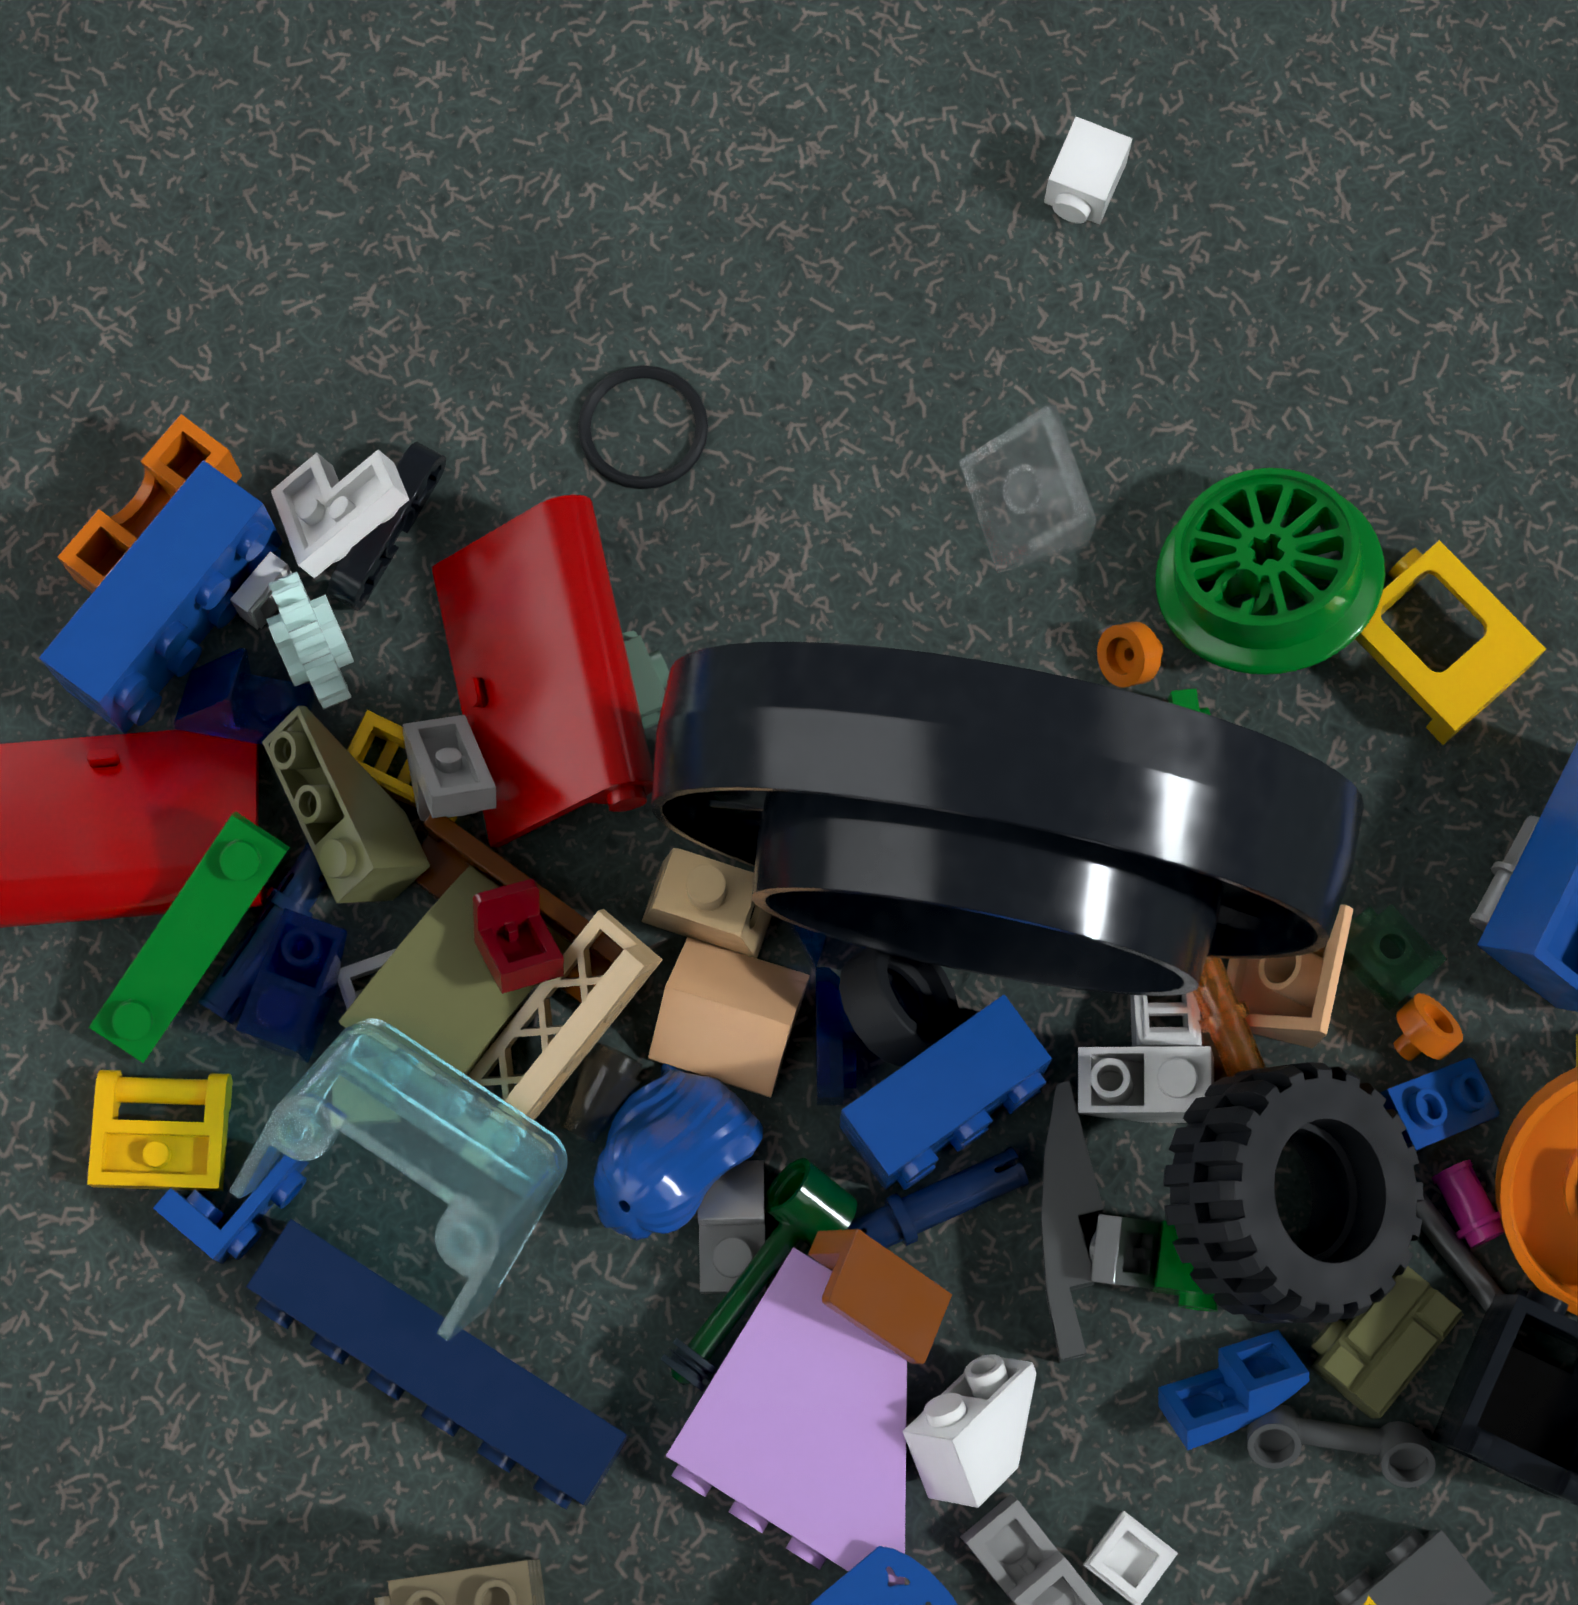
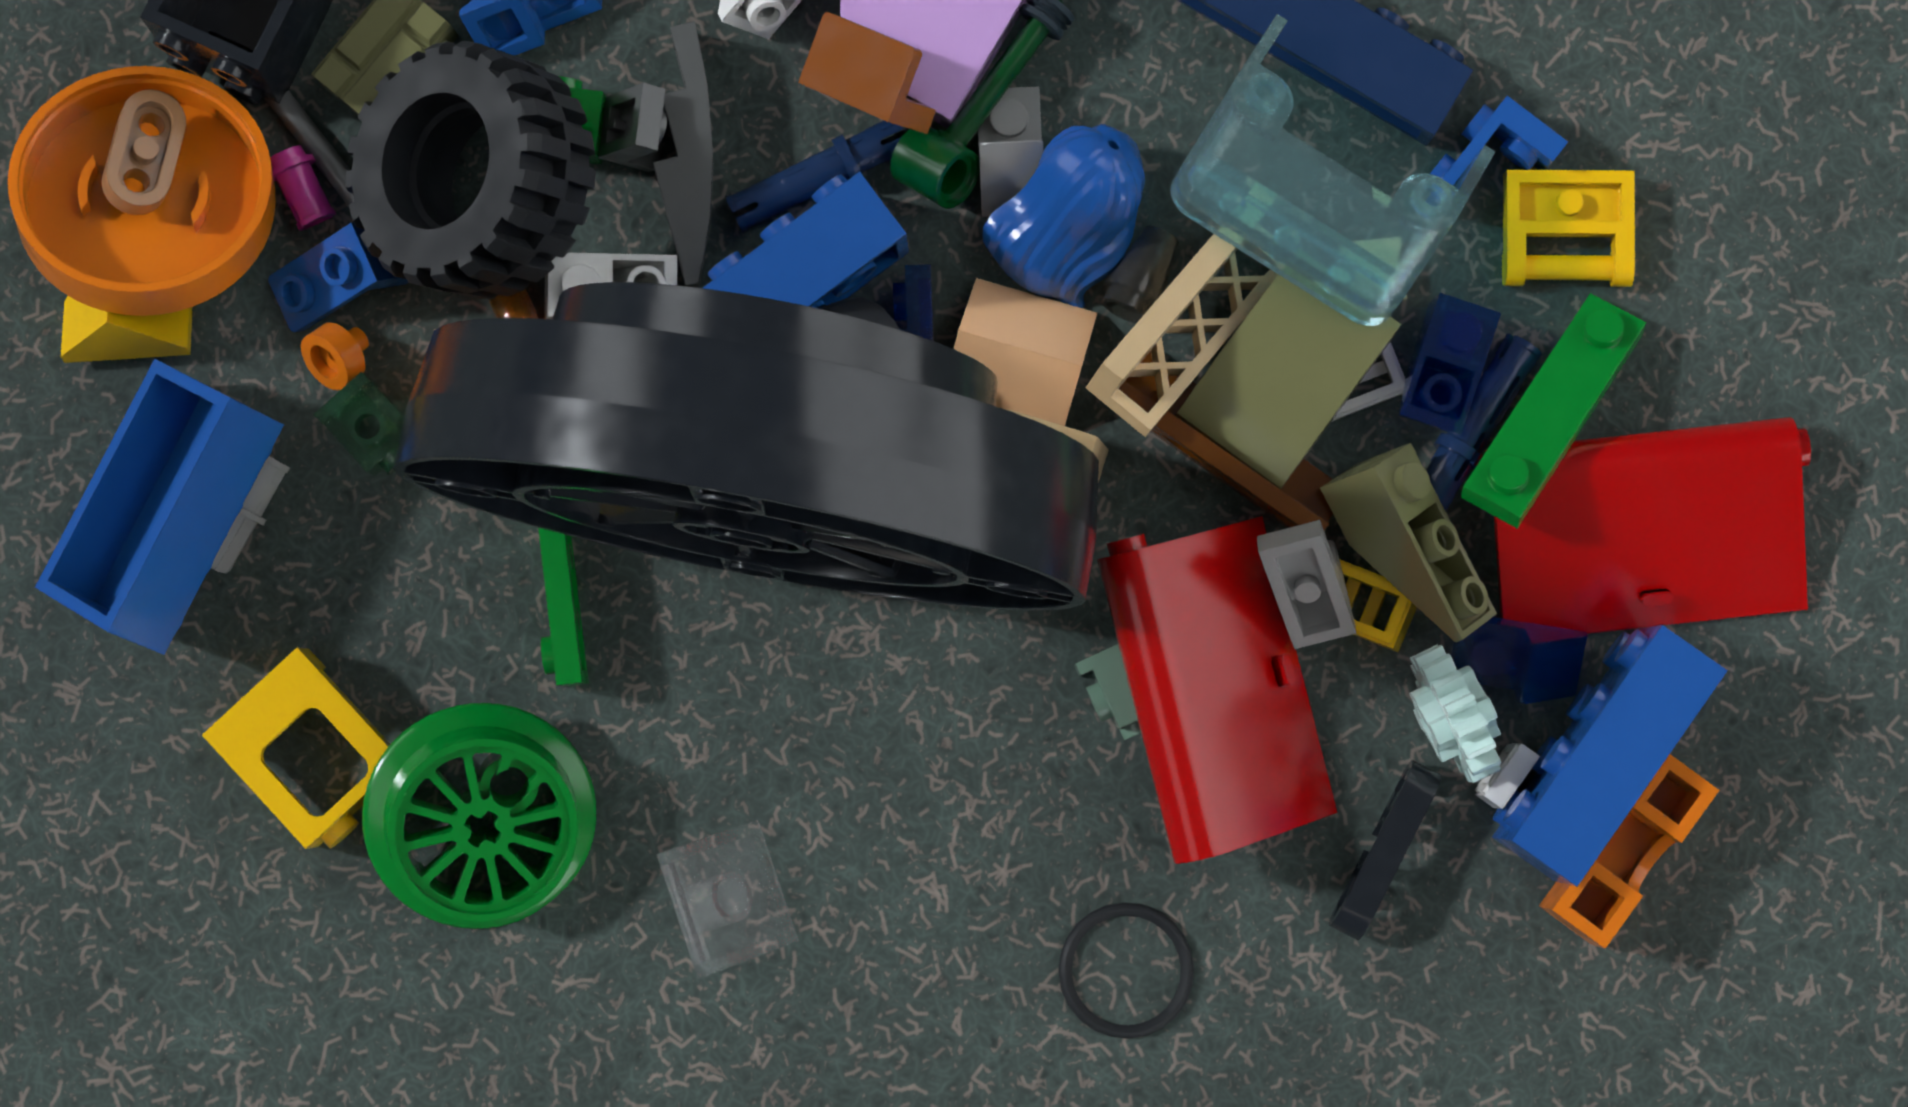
camera: 175 degrees left, 10 degrees up
(333, 515) = (1439, 846): white plate -> none
(515, 936) = (1230, 403): dark red bracket -> none
(1129, 654) = (623, 729): orange tile -> none

